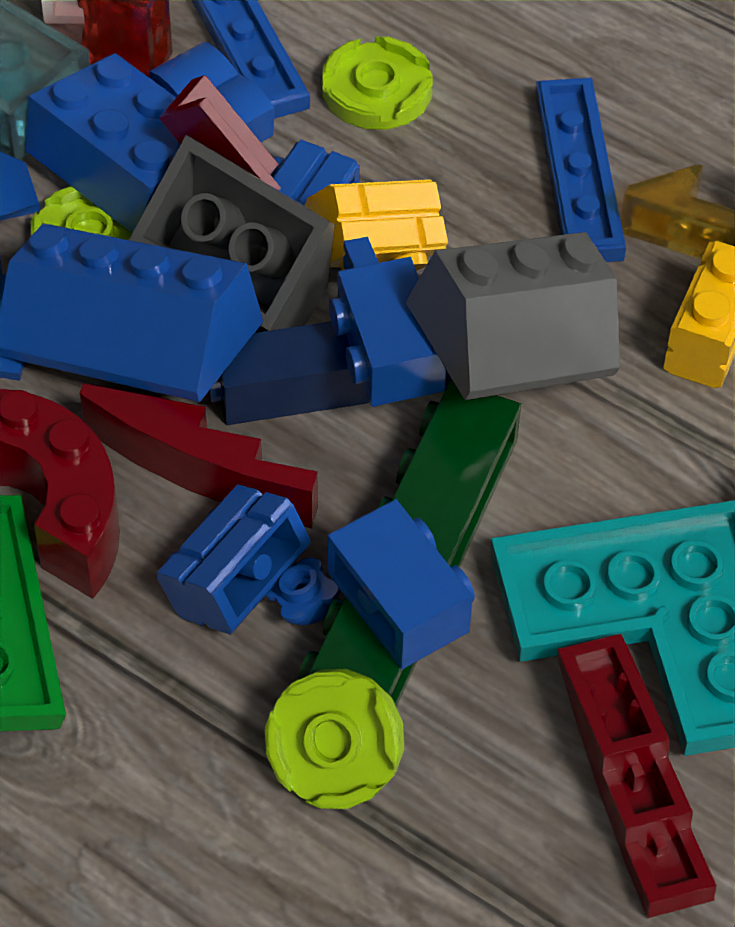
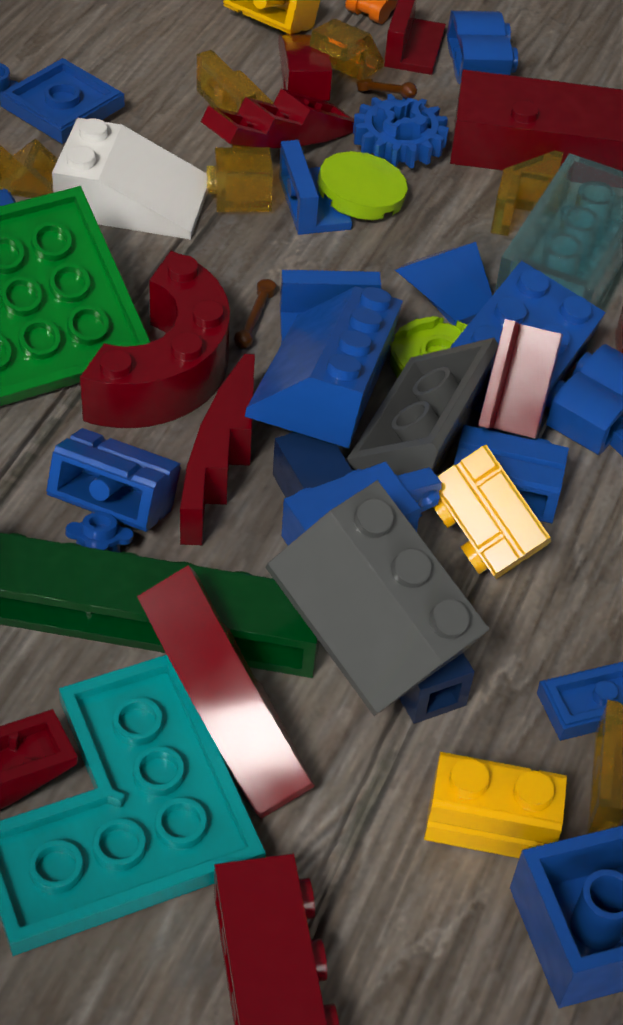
camera: 75 degrees right, 5 degrees down
(400, 583) = (74, 562): blue brick -> none
(554, 492) = (225, 692): none -> dark red slope

